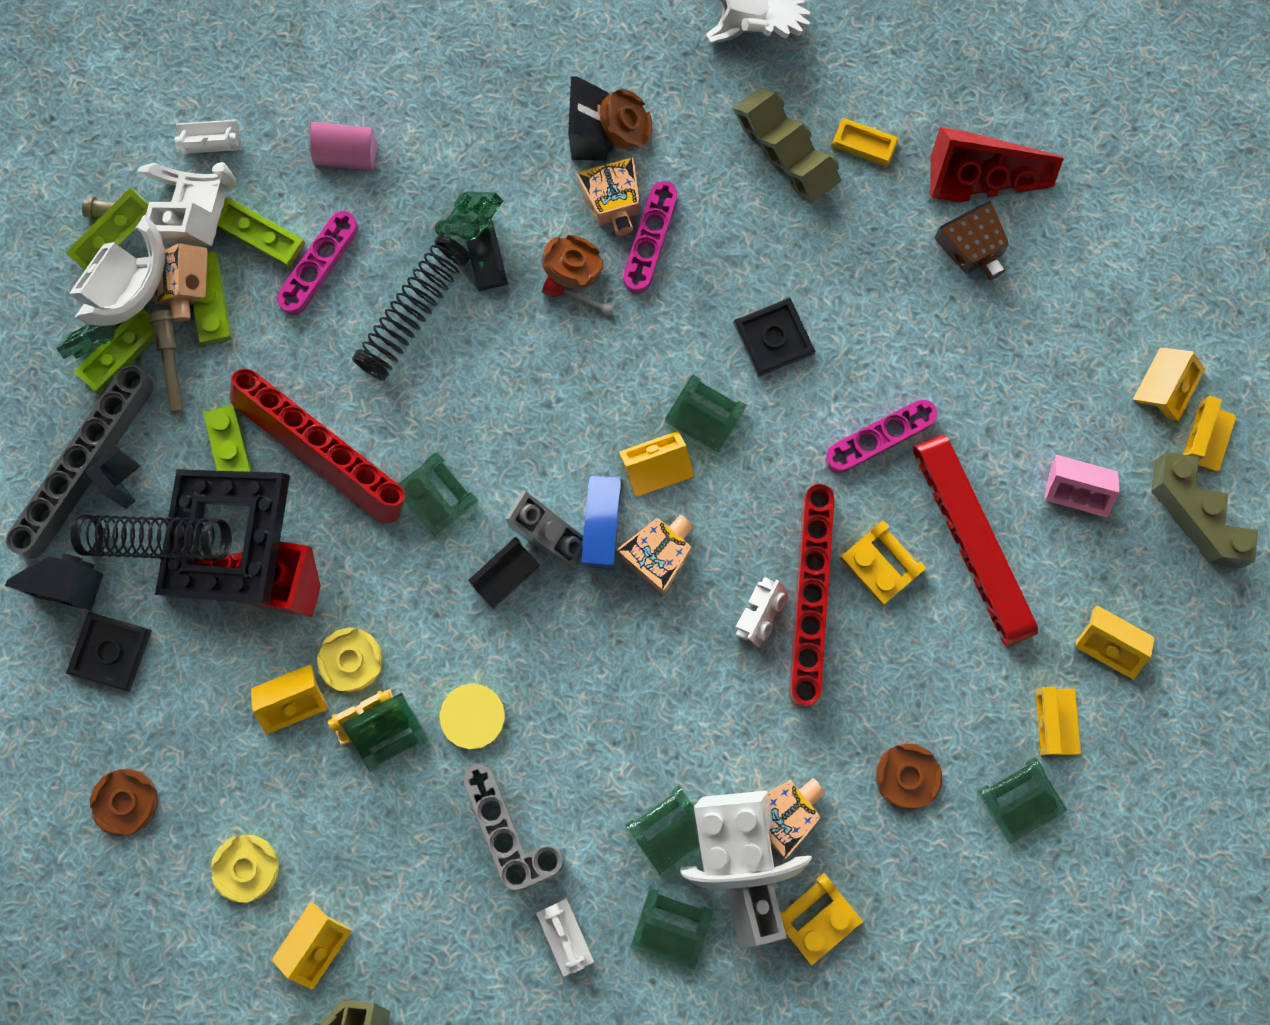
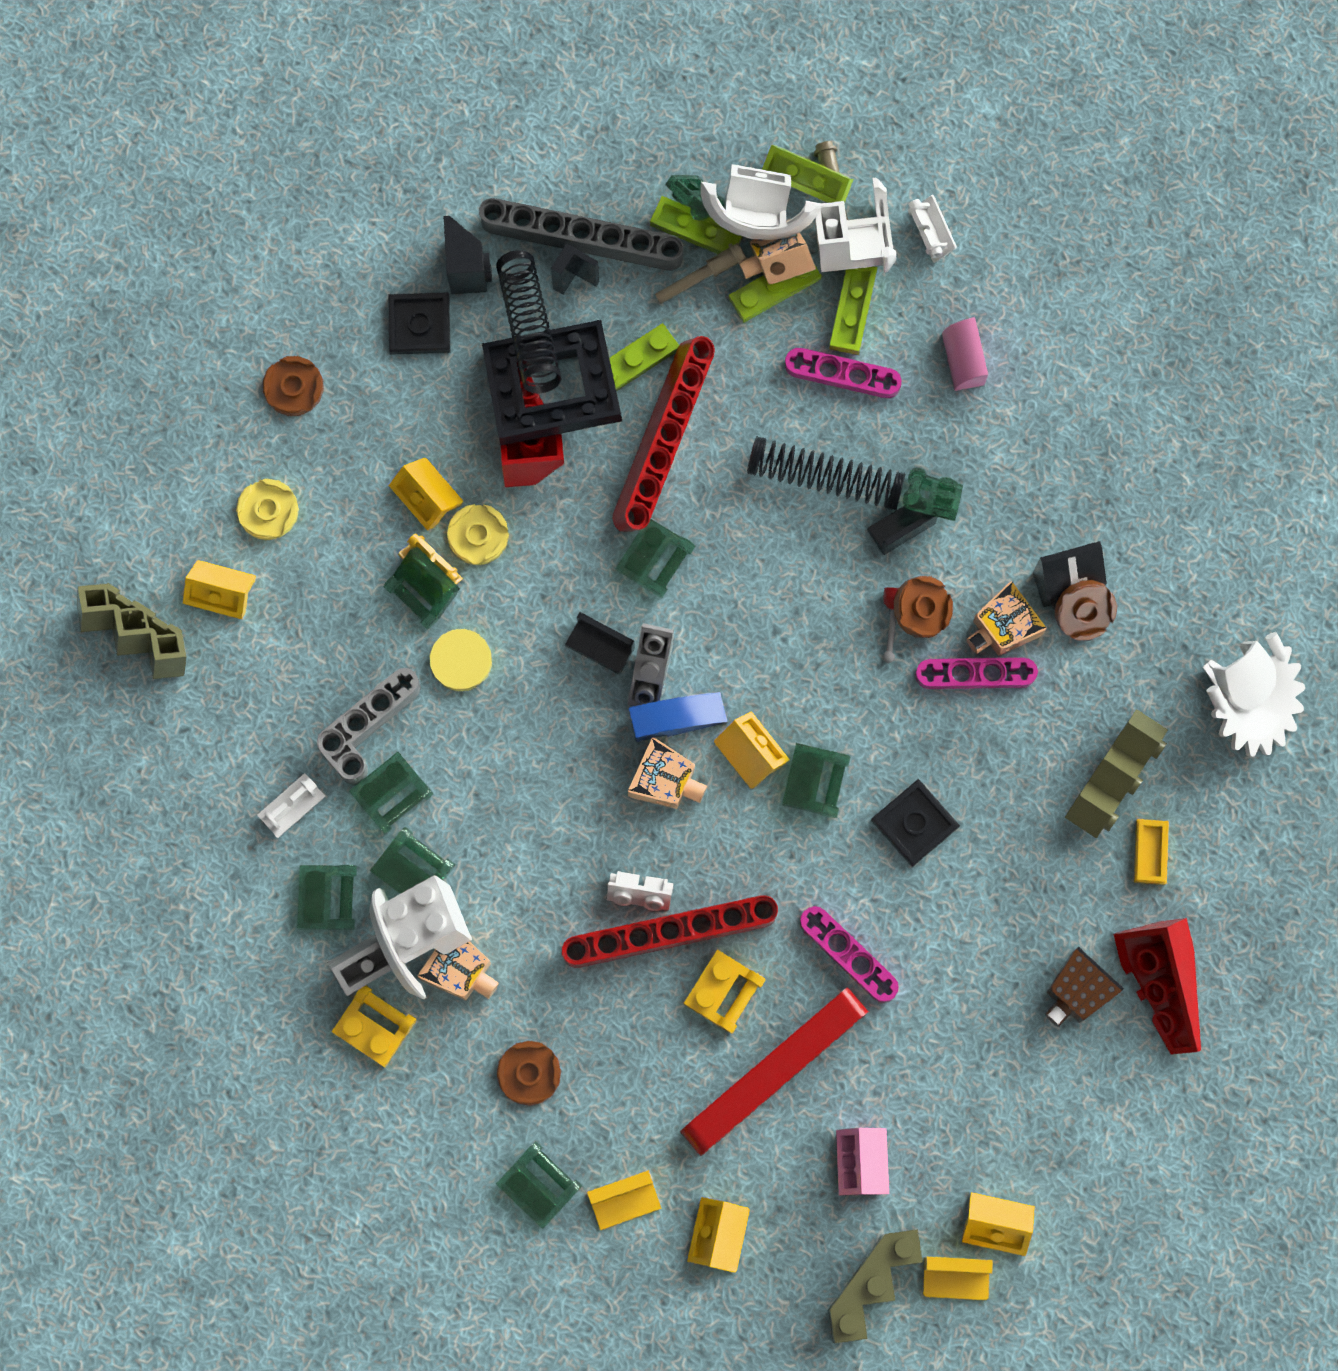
camera: 70 degrees right, 0 degrees up
(574, 833) = (385, 784): none -> clear green plate

